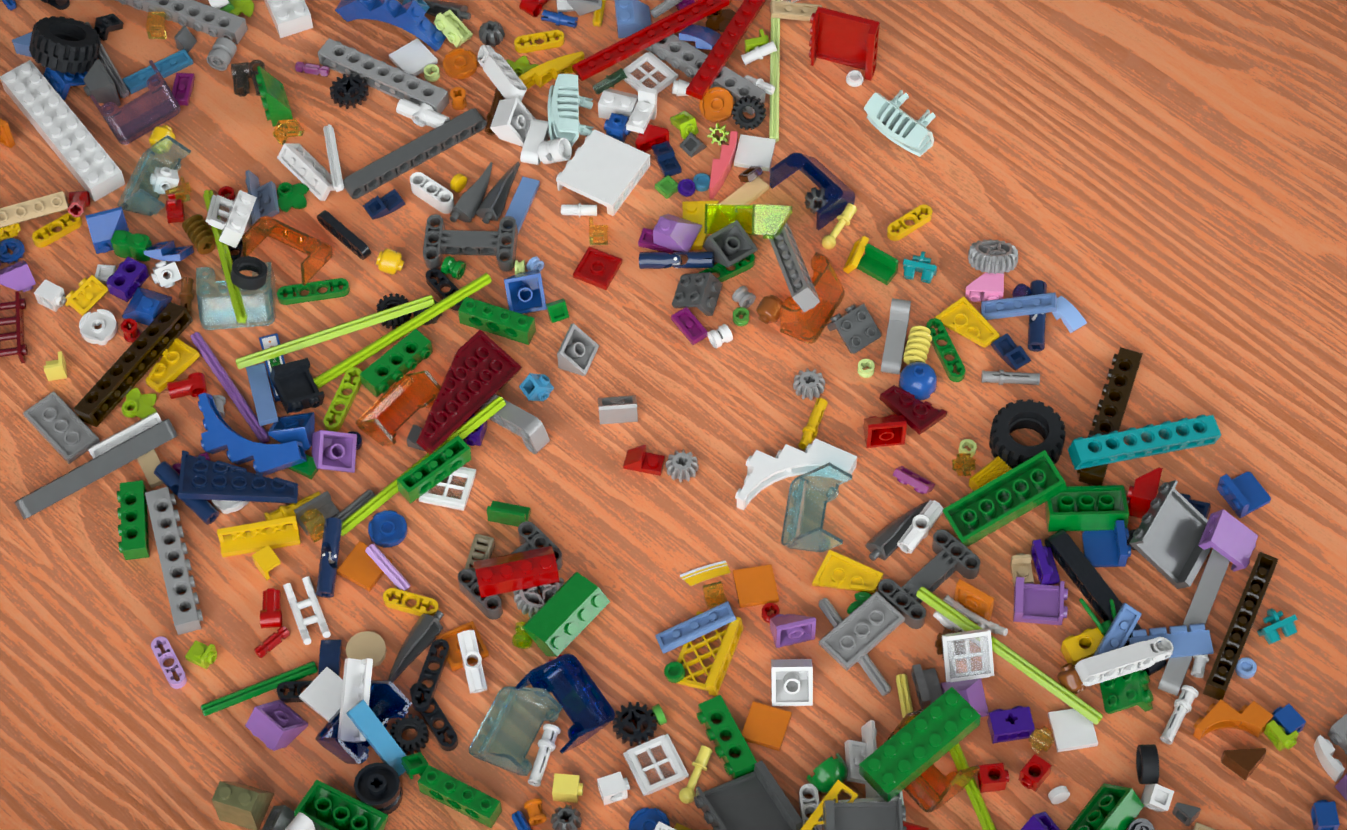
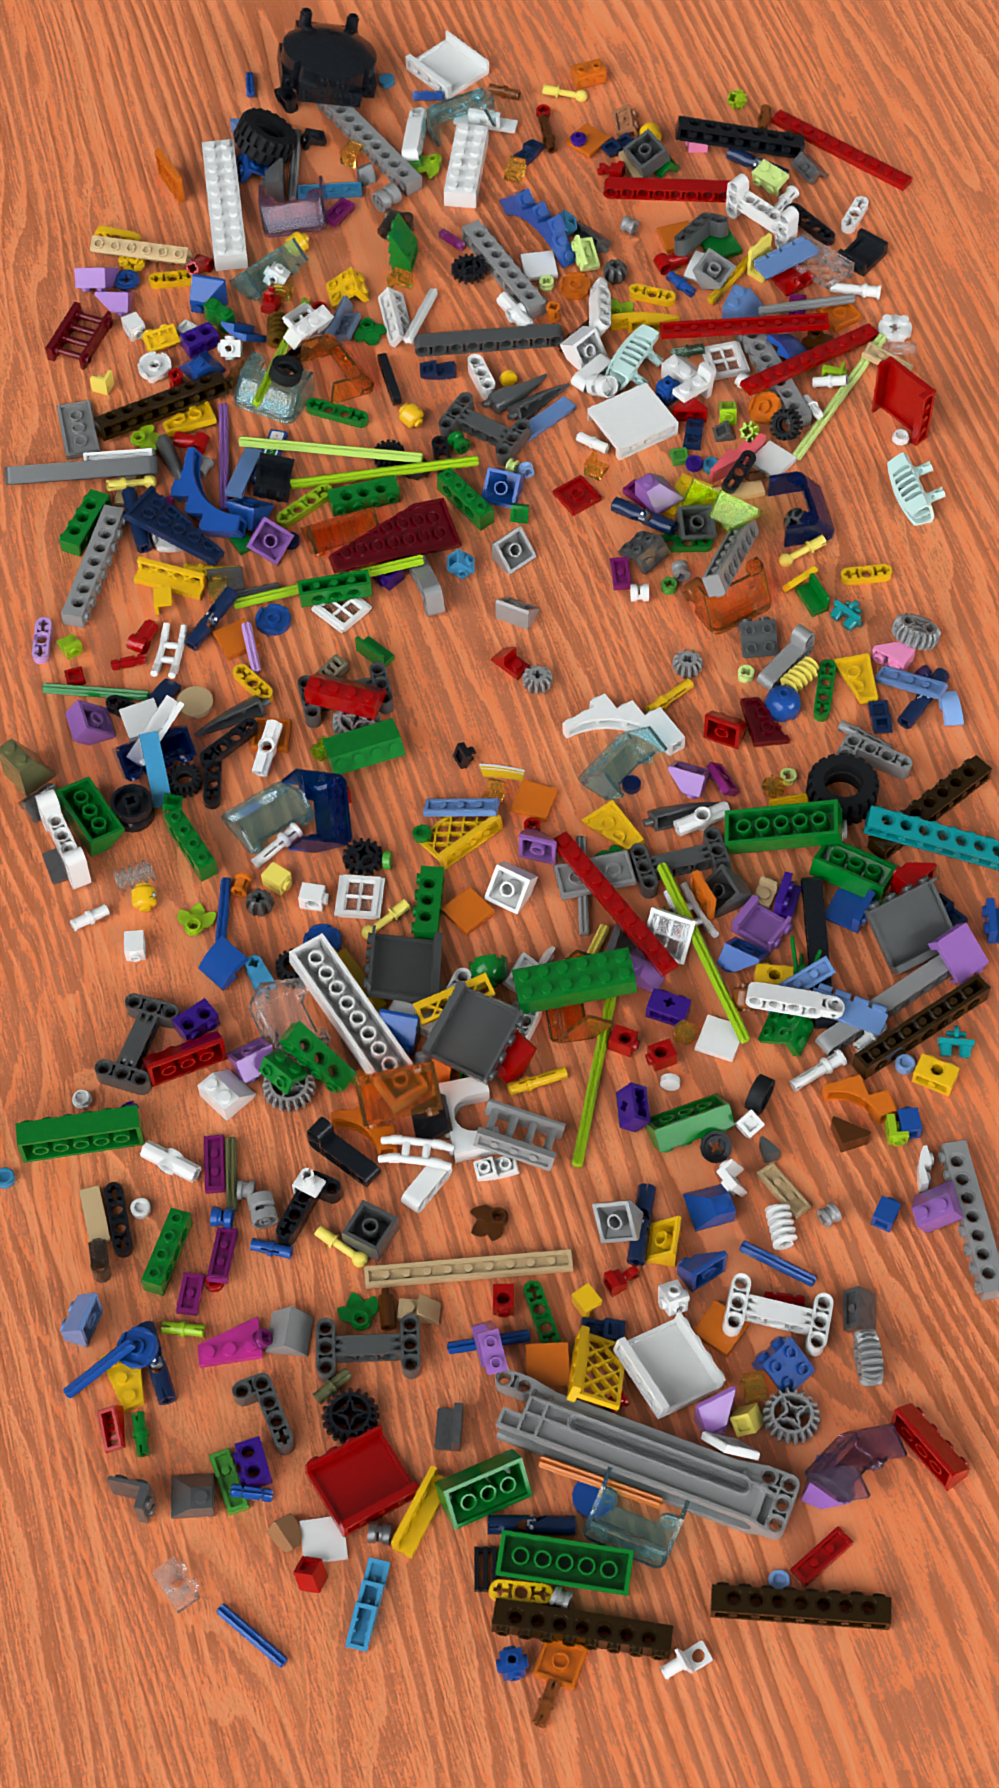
camera: 30 degrees right, 0 degrees up
(170, 447) = (121, 484): none -> light yellow pin
(177, 413) = (169, 455): none -> dark grey piece
(227, 683) = (75, 676): none -> red tile
(239, 159) = (348, 284): none -> yellow bracket
(662, 574) = (463, 755): none -> black tile
(741, 172) = (745, 468): none -> black beam
(834, 525) = (631, 784): none -> clear blue tile
(885, 492) = (689, 778): none -> slope
(903, 650) = (615, 905): none -> red plate
(990, 581) = (729, 890): none -> dark grey slope
(1042, 640) = (740, 954): none -> slope
(1057, 390) = (860, 746): none -> light grey beam
(1271, 670) = (940, 1083): none -> yellow brick

